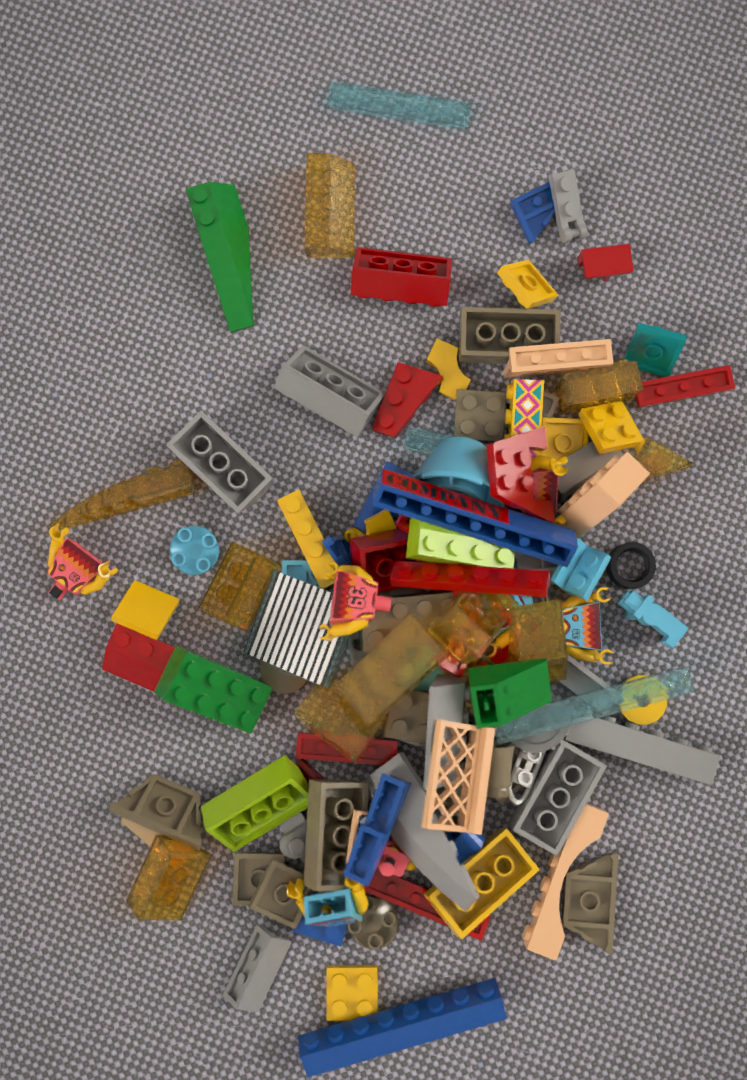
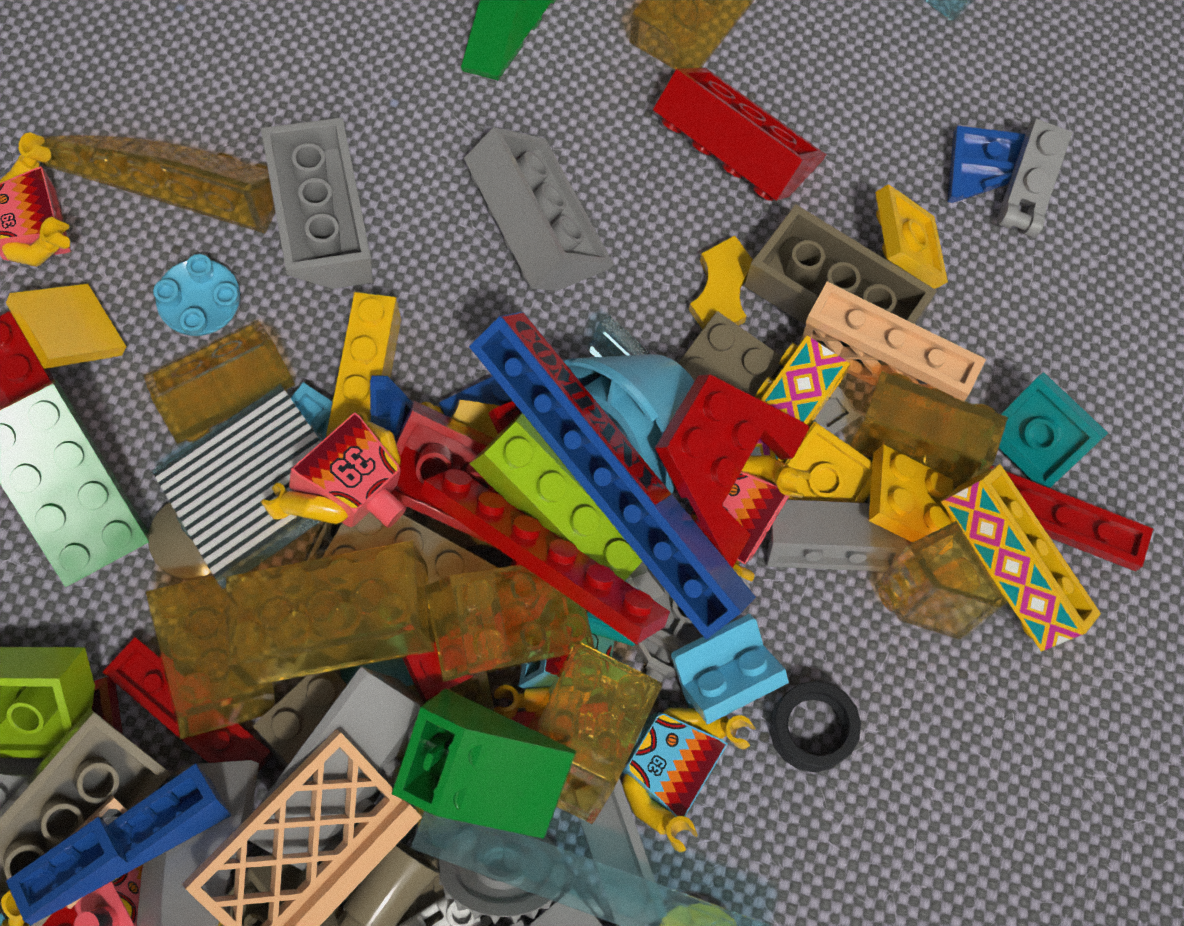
camera: 30 degrees right, 15 degrees down
(403, 397) = (635, 279): red wing -> none
(602, 494) = (833, 567): light nougat brick -> none
(606, 261) = (1047, 277): red panel -> none
(653, 615) = (797, 820): medium azure hips -> none
(679, 424) = (1021, 558): none -> yellow brick

